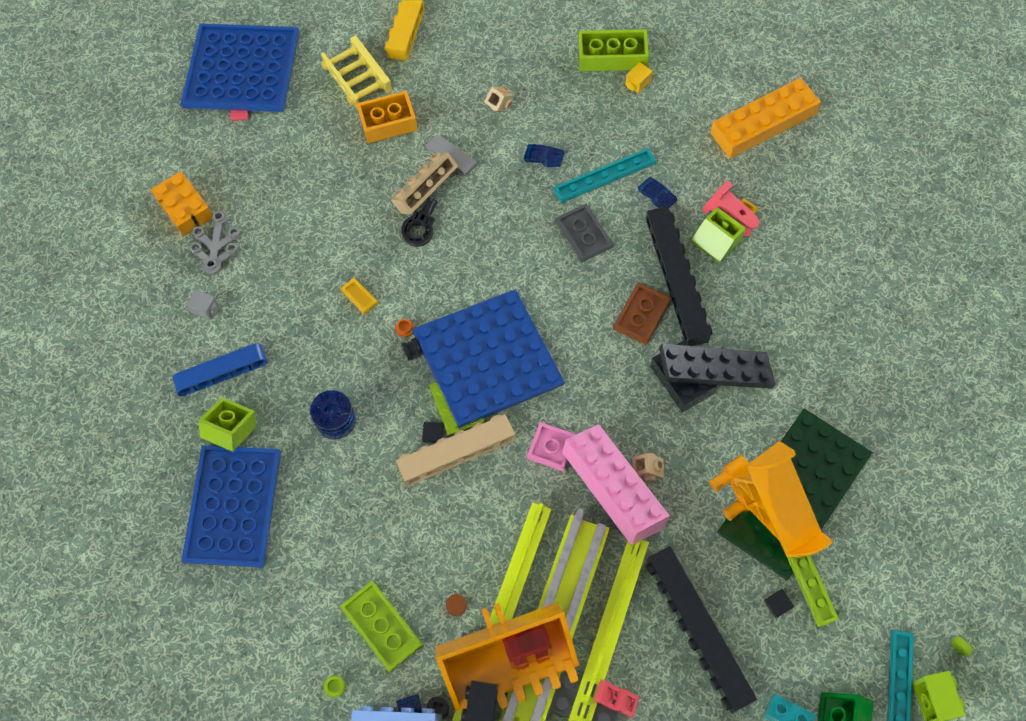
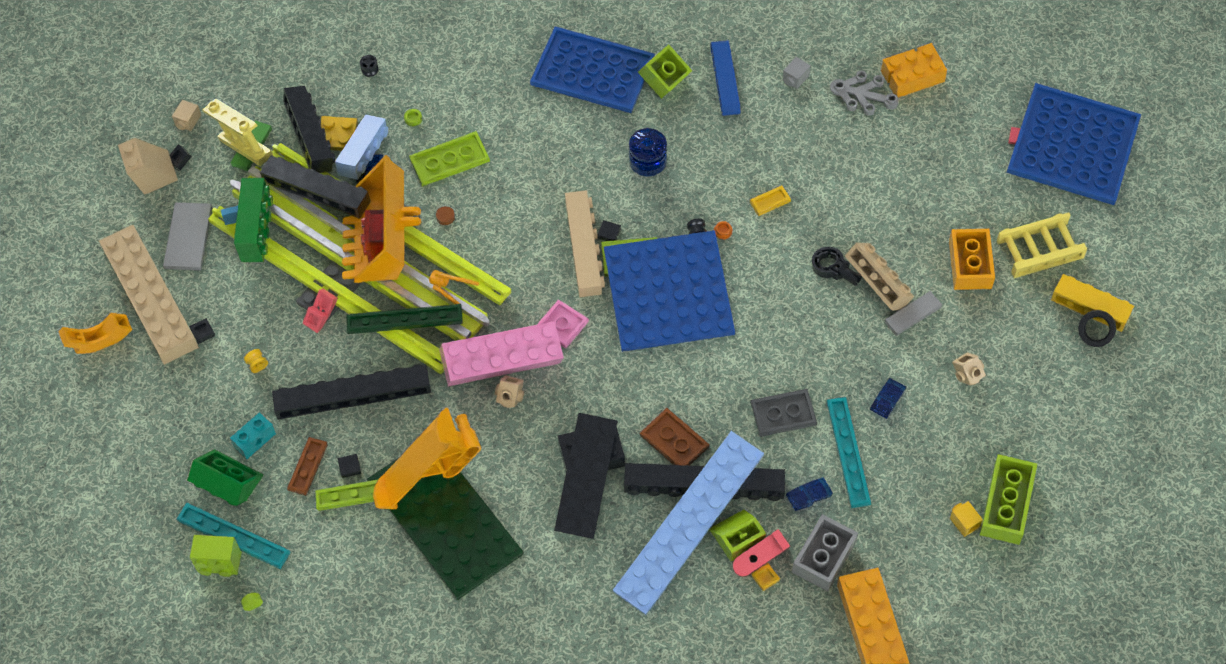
camera: 105 degrees right, 5 degrees down
(424, 23) = (1092, 342): none -> black tyre
(551, 569) = (441, 279): none -> light orange plant
(608, 595) = (404, 319): none -> dark green tile
(711, 165) = (825, 552): none -> light grey brick
(726, 273) = (688, 523): none -> light blue plate
(795, 647) = (307, 466): none -> dark orange tile

